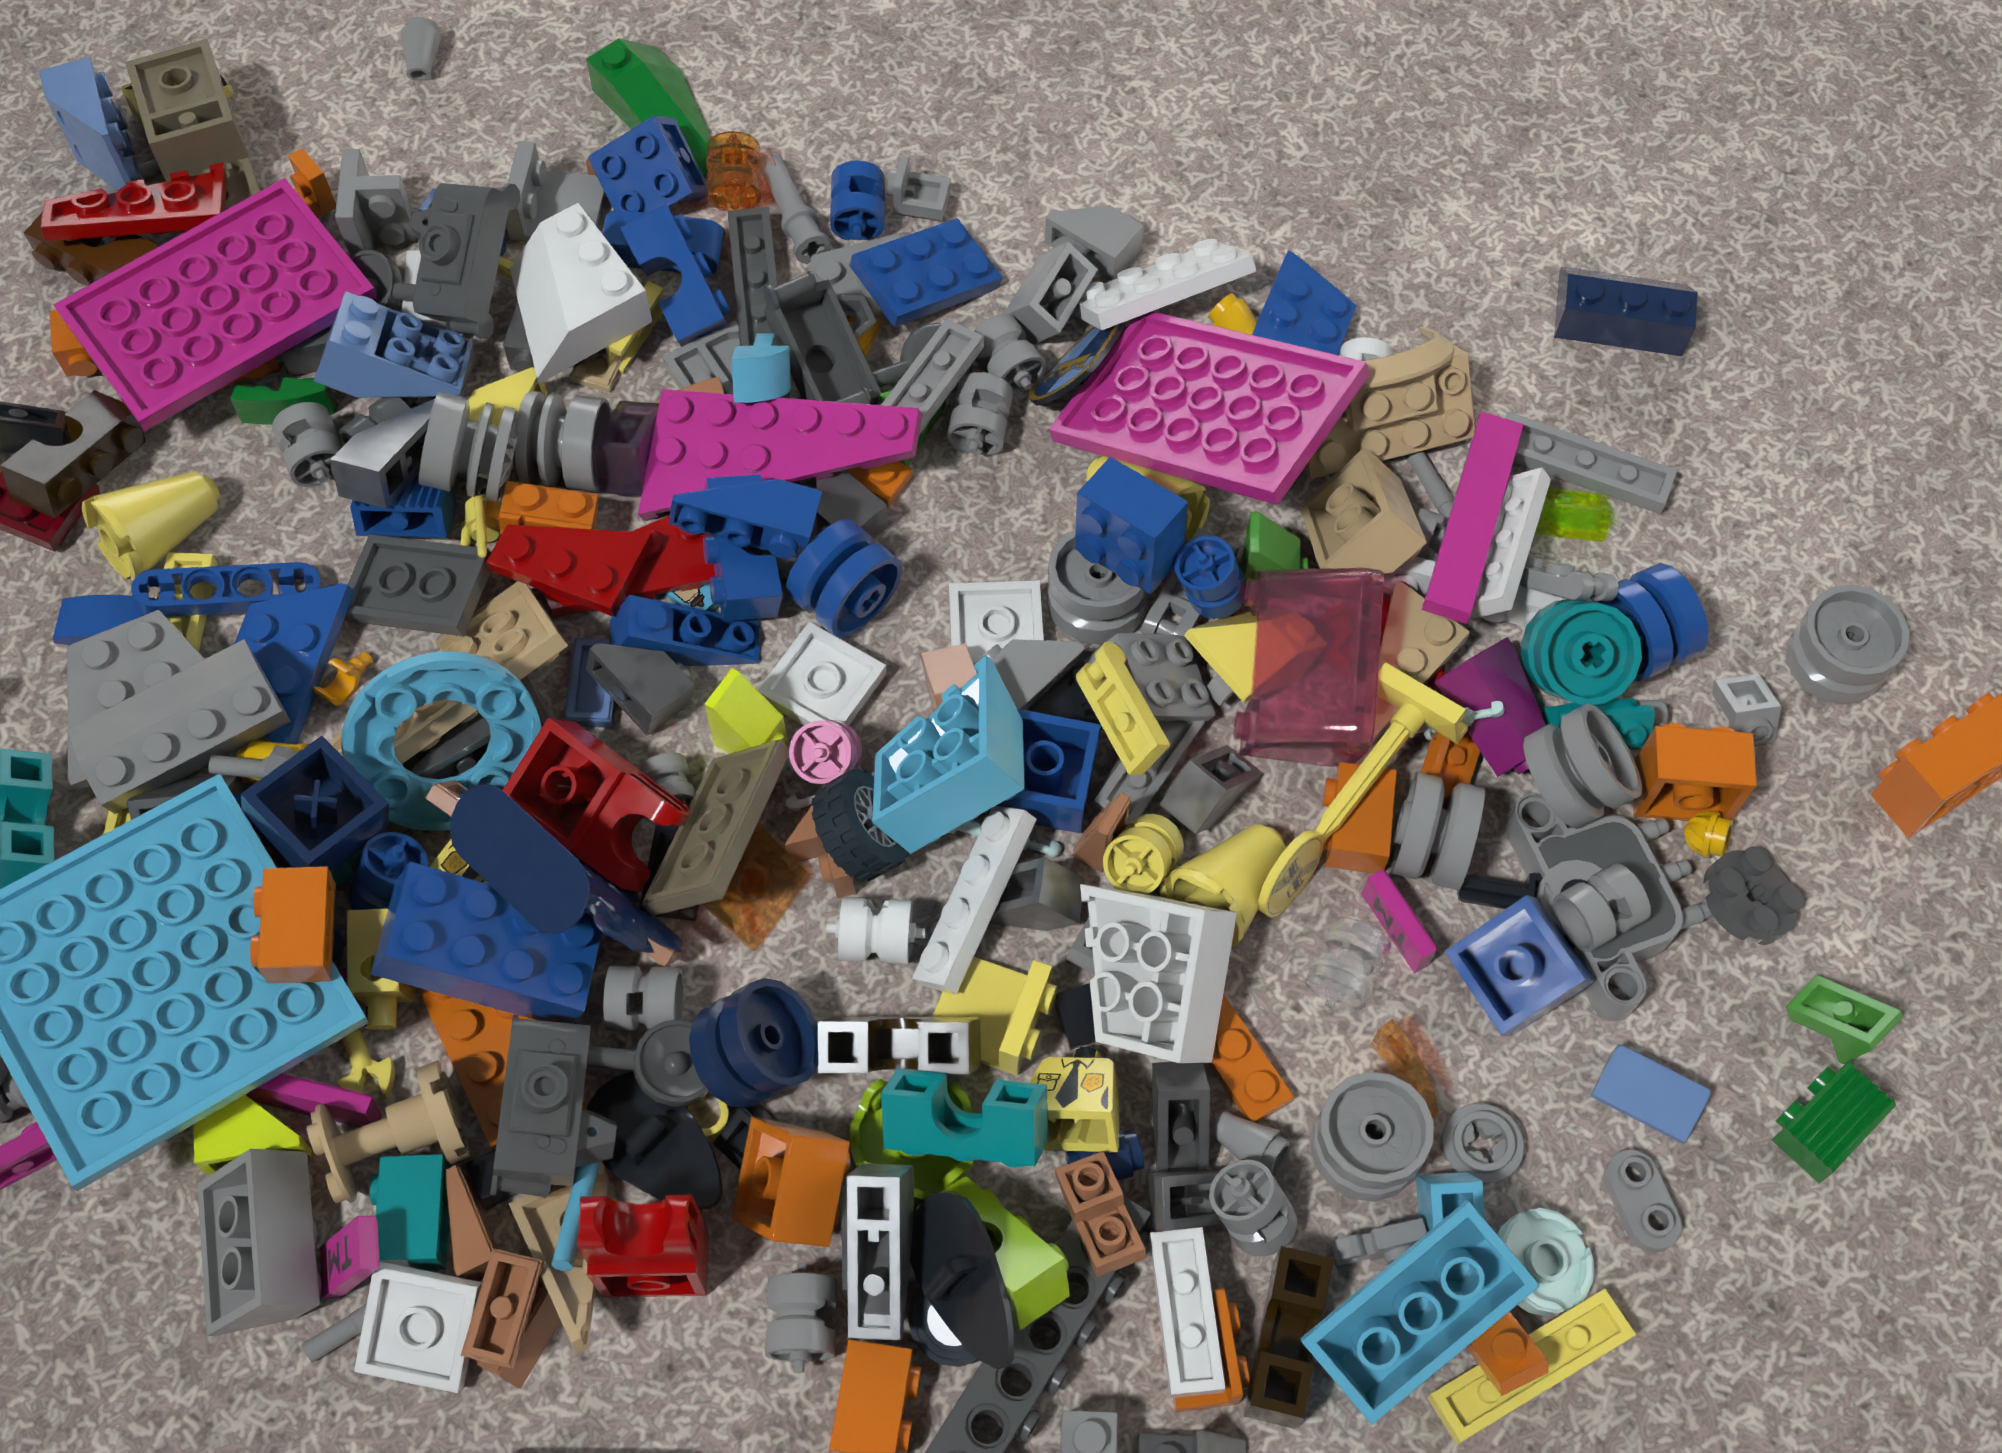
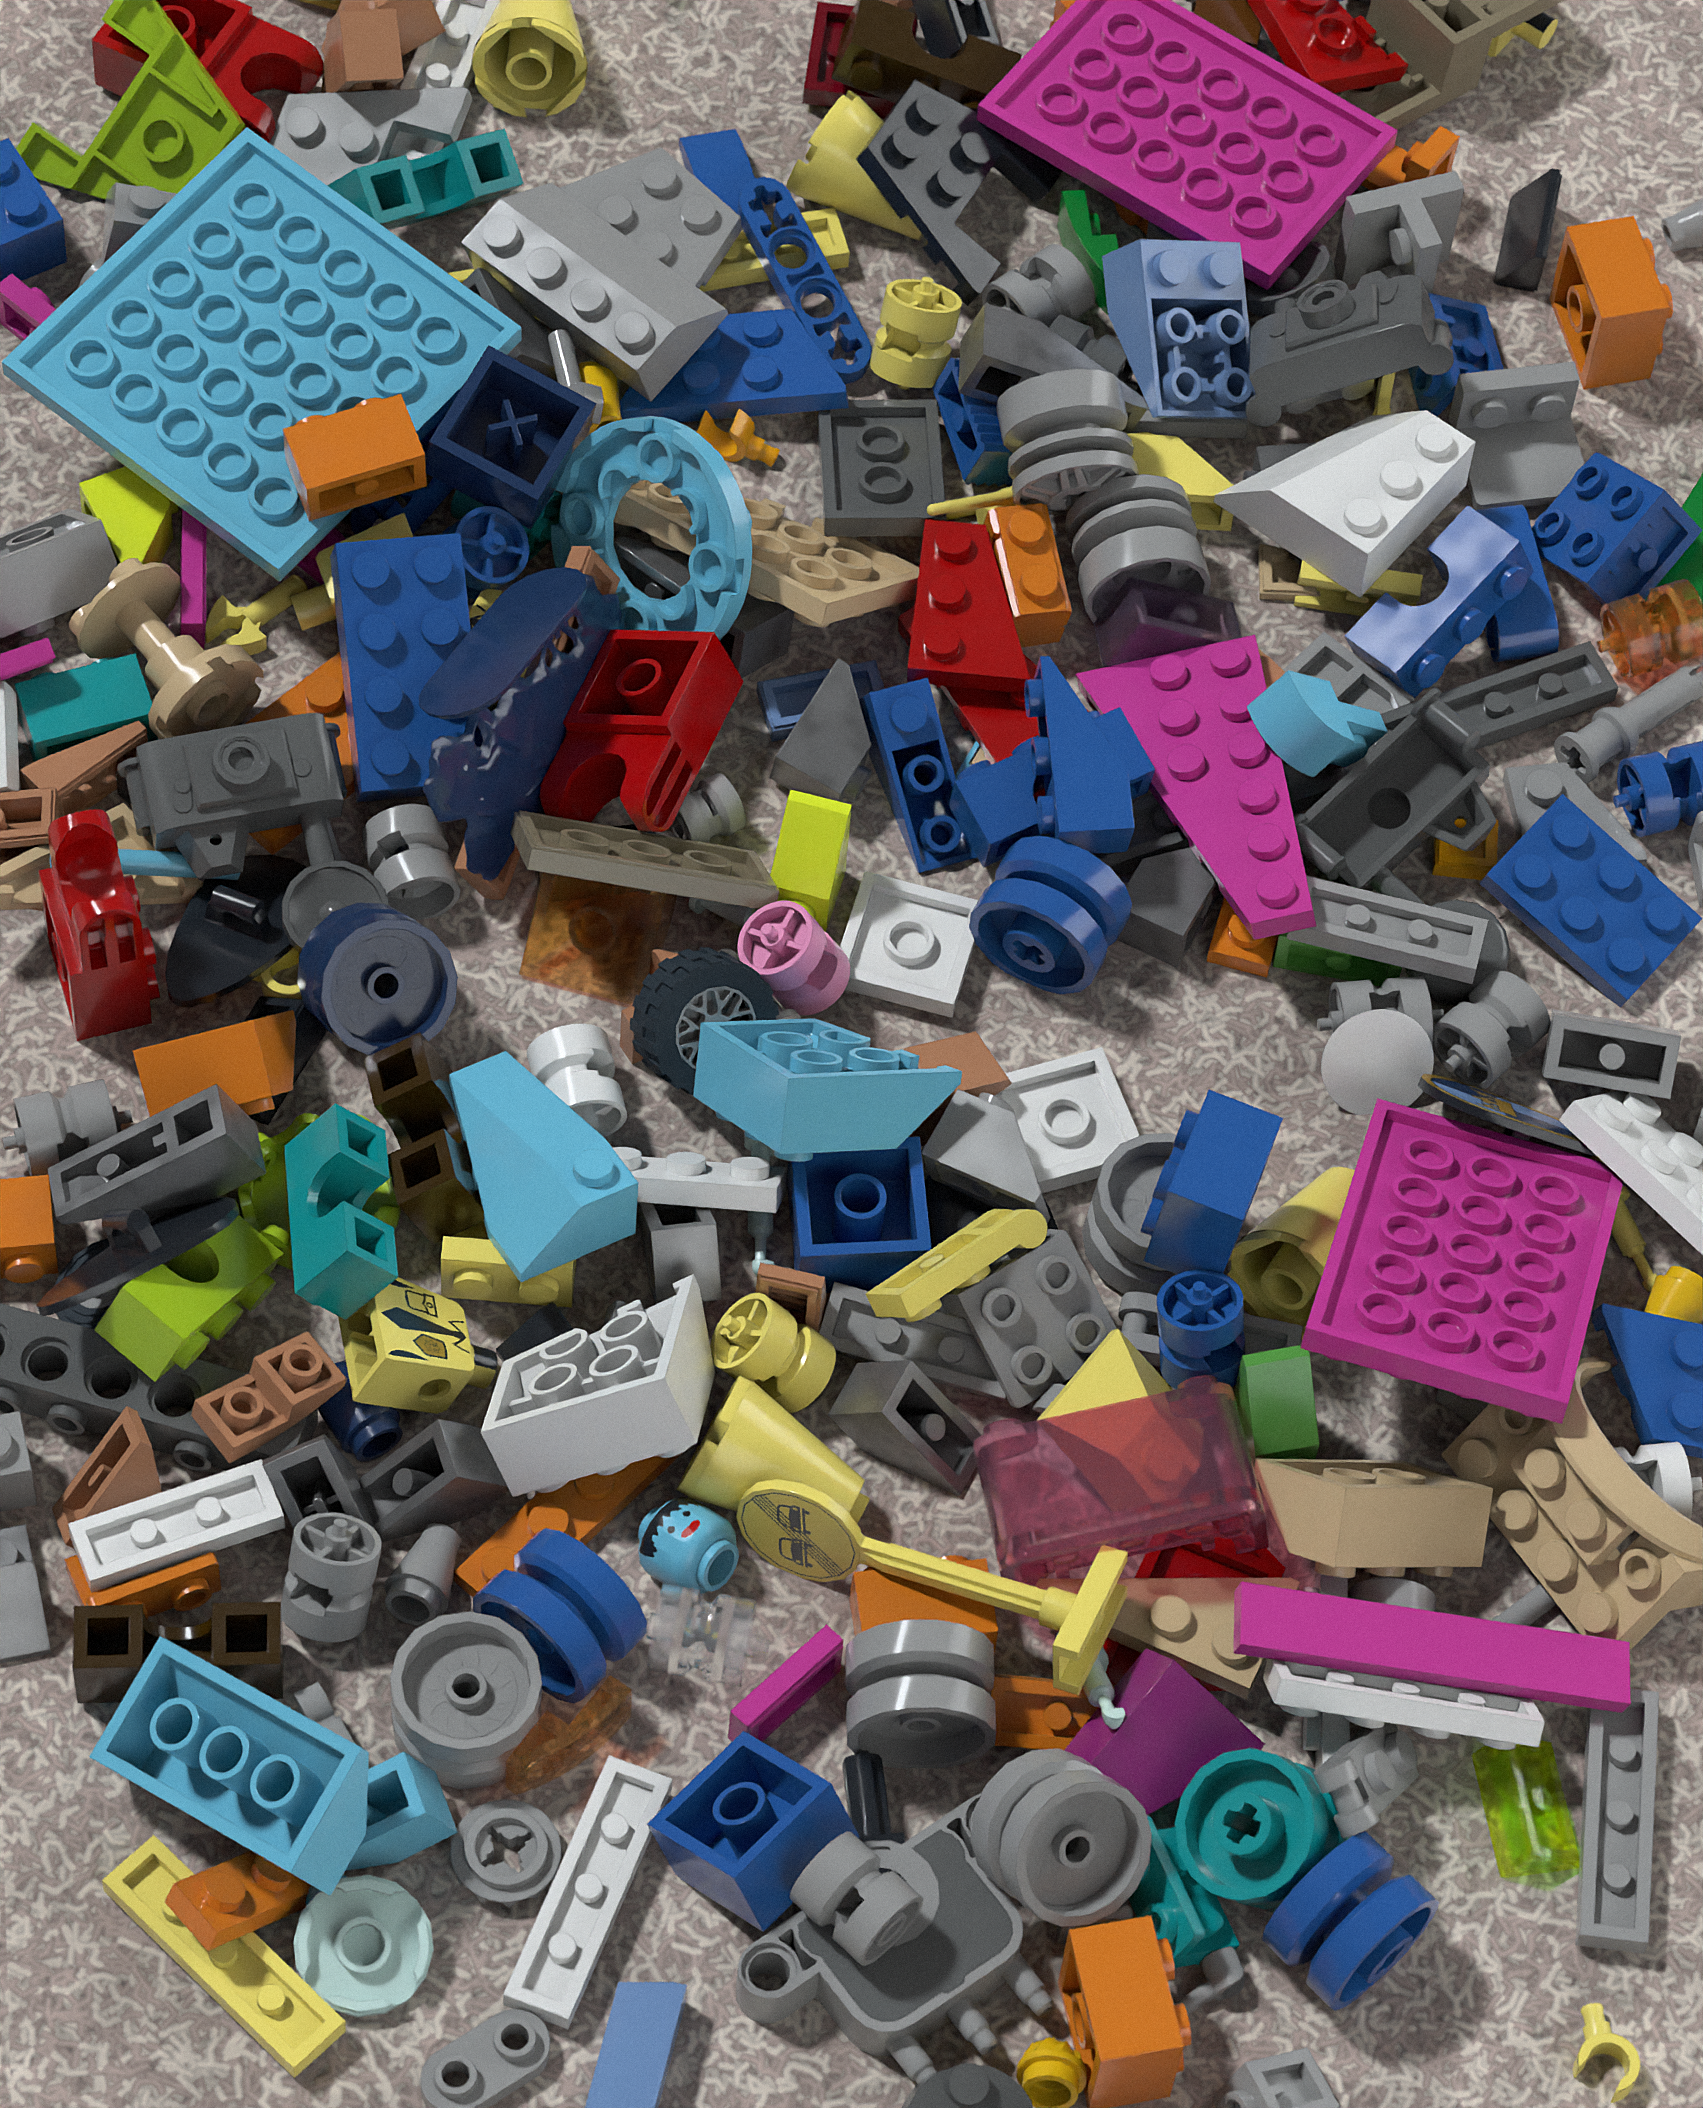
camera: 70 degrees right, 5 degrees down
(174, 471) = (930, 164): none -> wing
(312, 526) = (915, 332): none -> light yellow wheel
(384, 145) = (1528, 233): none -> black slope
(471, 111) = (1610, 302): none -> orange brick
(964, 965) = (540, 1169): none -> medium azure wedge
(1014, 424) = (1374, 1058): none -> white sticker
(1132, 1357) = (113, 1475): none -> nougat slope
(1273, 956) = (688, 1545): none -> medium azure head
(1324, 1049) = (568, 1611): none -> blue wheel
(1526, 1095) = (587, 1892): none -> white plate
(1729, 519) = (1601, 2040): none -> light yellow piece

